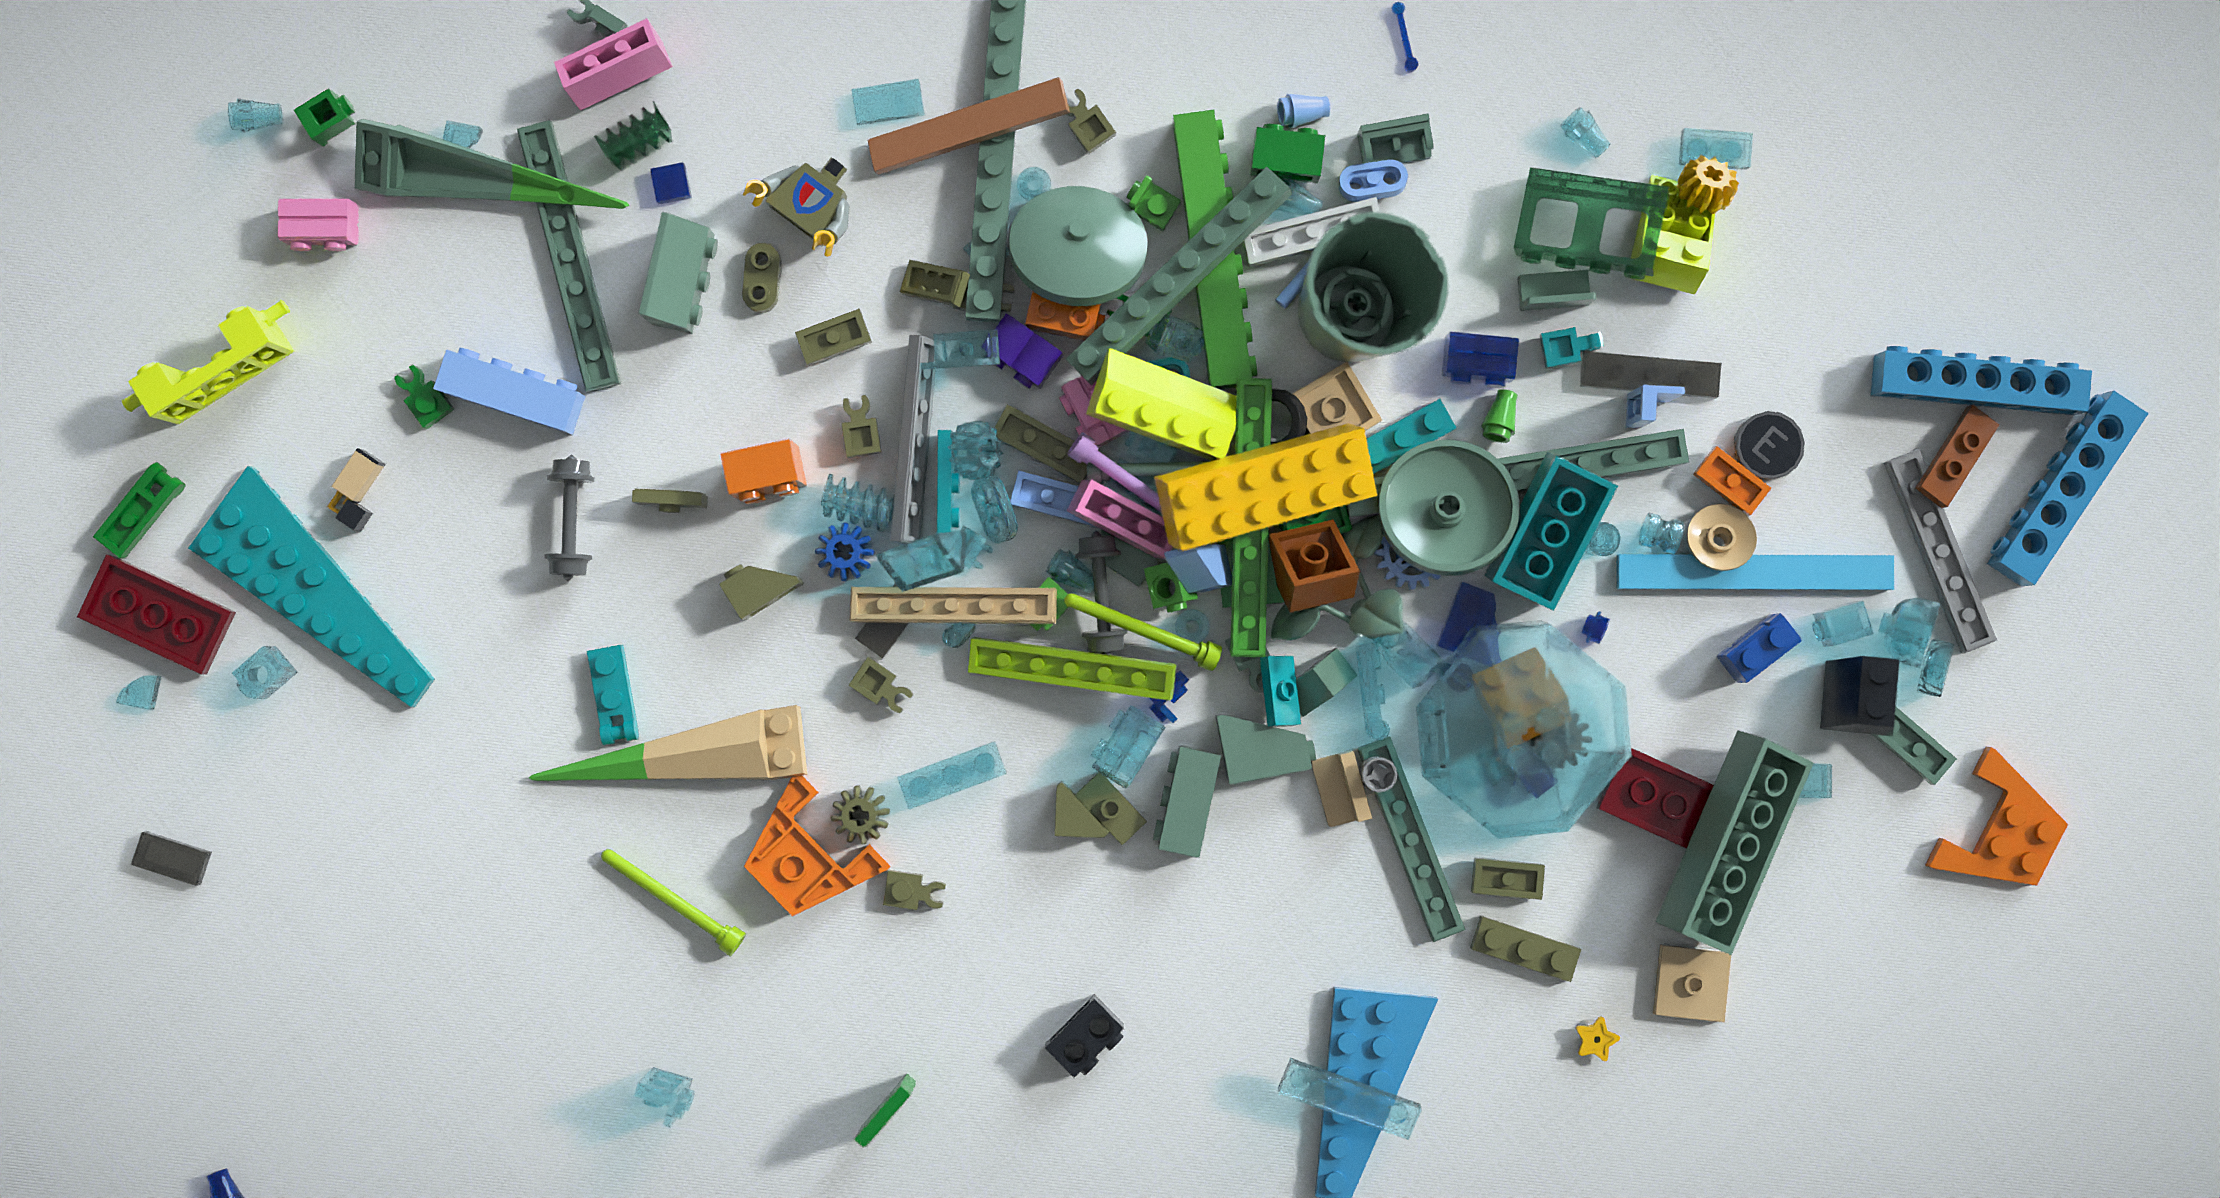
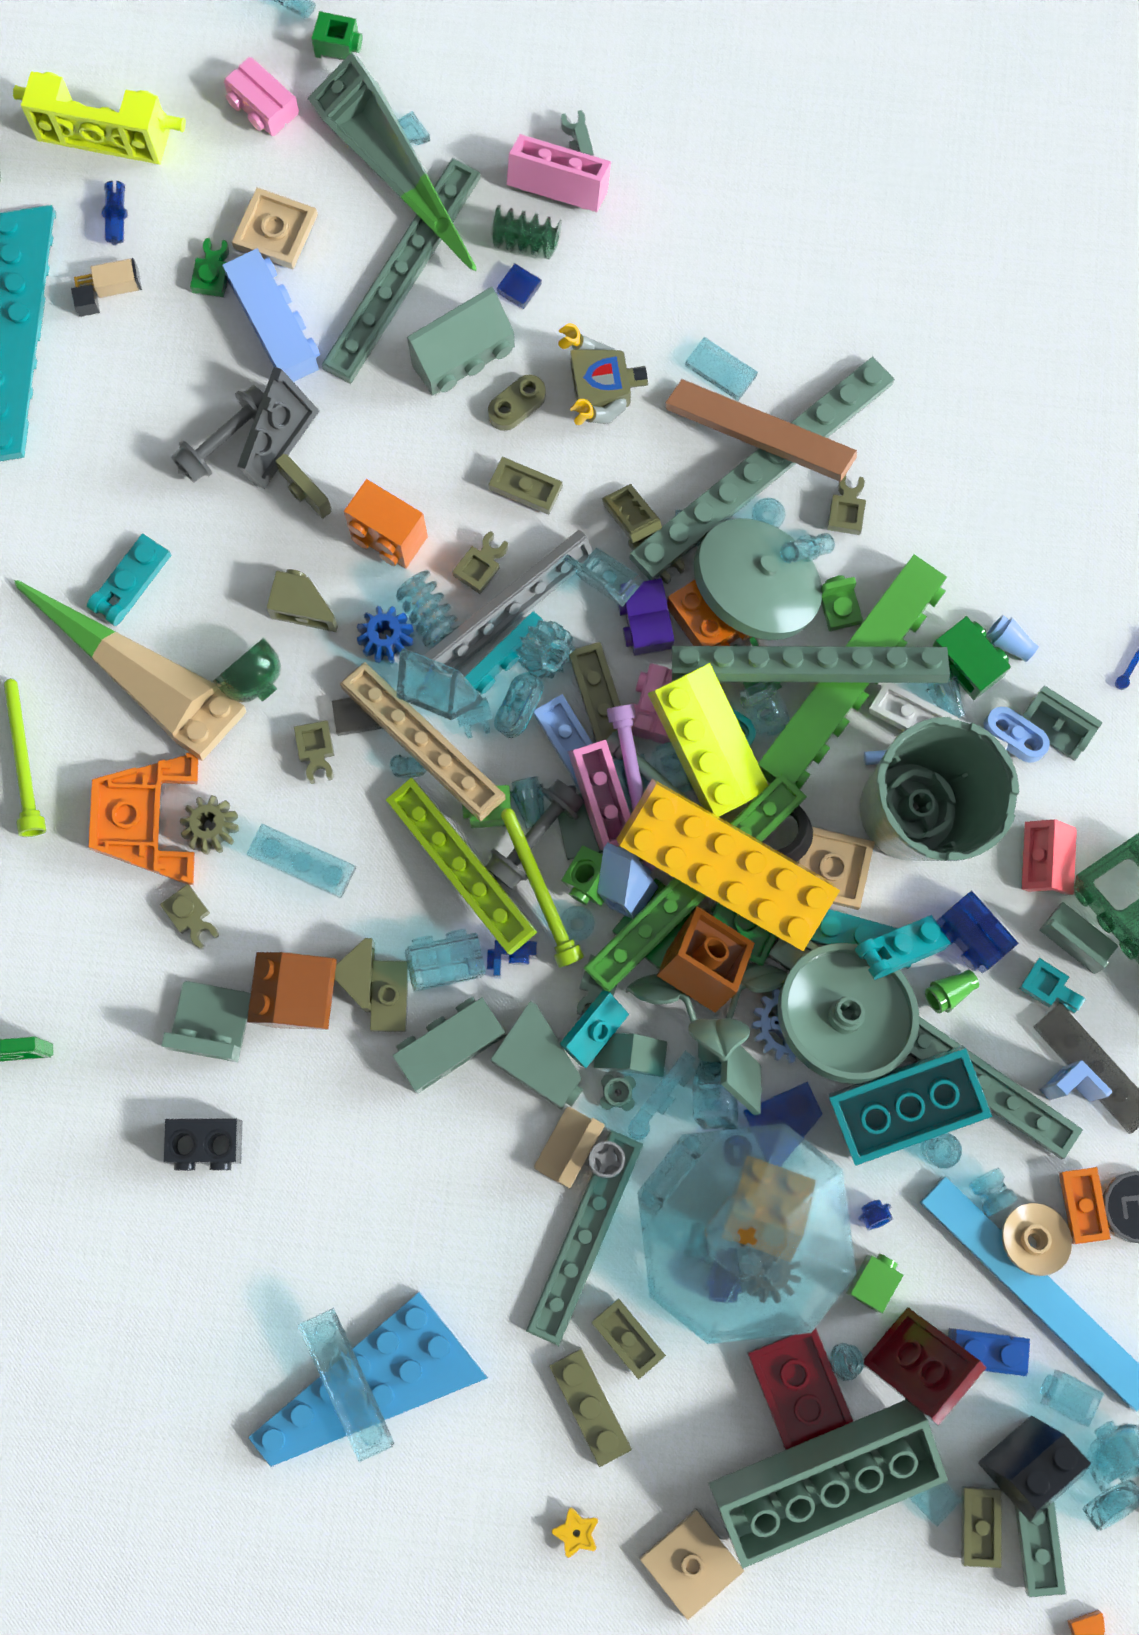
camera: 45 degrees right, 10 degrees down
(303, 425) = (114, 212): none -> clear blue axle
(438, 318) = (275, 227): none -> tan plate
(606, 475) = (276, 428): none -> dark grey wing
(778, 677) = (251, 674): none -> clear green cylinder
(1004, 951) = (209, 1022): none -> sand green bracket
(1043, 874) = (291, 991): none -> dark orange slope
(1090, 185) = (807, 548): none -> clear light blue pin
(1347, 719) = (623, 1101): none -> sand green plate
(1421, 627) = (743, 1079): none -> sand green piece
(1441, 420) = (902, 947): none -> teal plate
(1479, 250) = (1049, 856): none -> coral panel
(1640, 674) = (875, 1282): none -> bright green brick
(1669, 748) = (846, 1361): none -> clear light blue plate
(1727, 702) = (923, 1365): none -> dark red plate
(1861, 769) = (981, 1527): none -> olive plate

